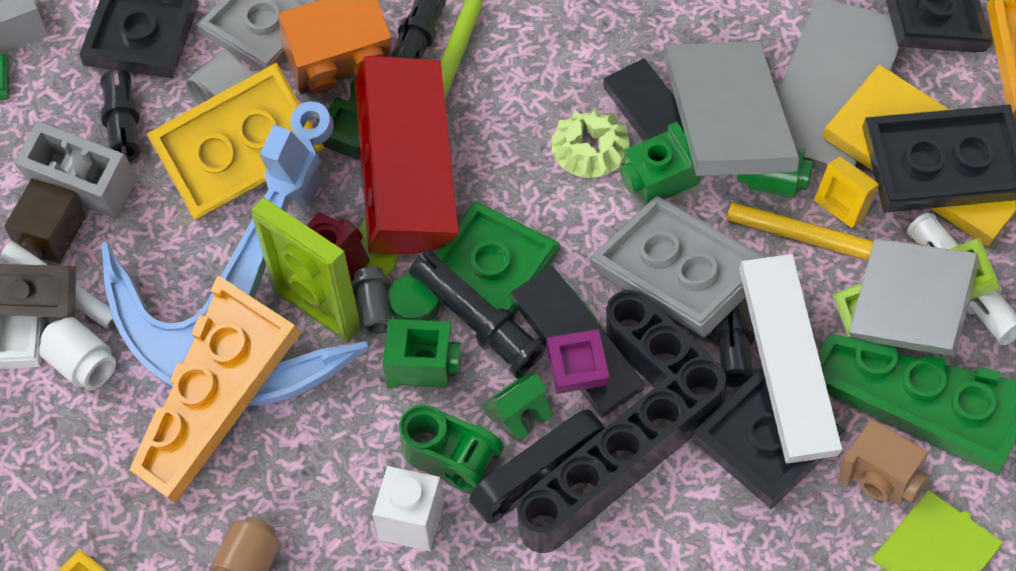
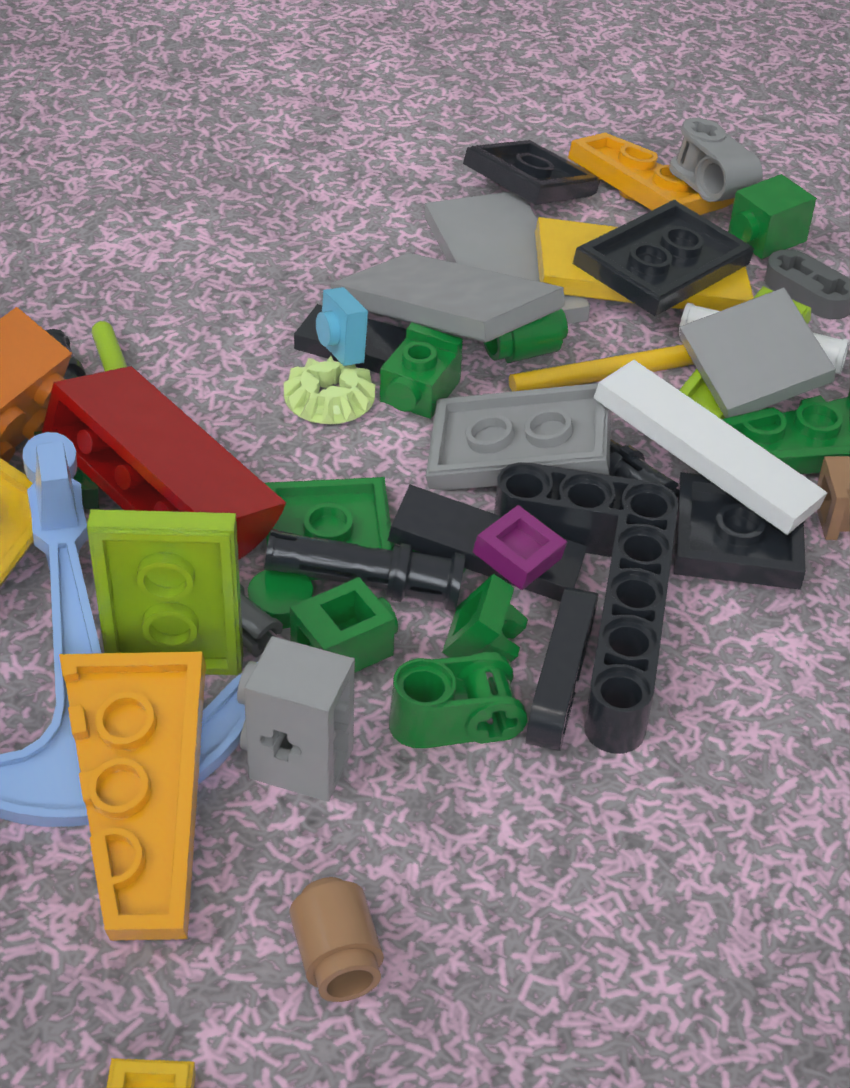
camera: 45 degrees left, 15 degrees down
(325, 404) = (298, 717): none -> light grey brick
(408, 508) = (477, 774): white brick -> none
(620, 98) = (342, 326): none -> medium azure plate
(846, 192) = (604, 319): yellow plate -> none

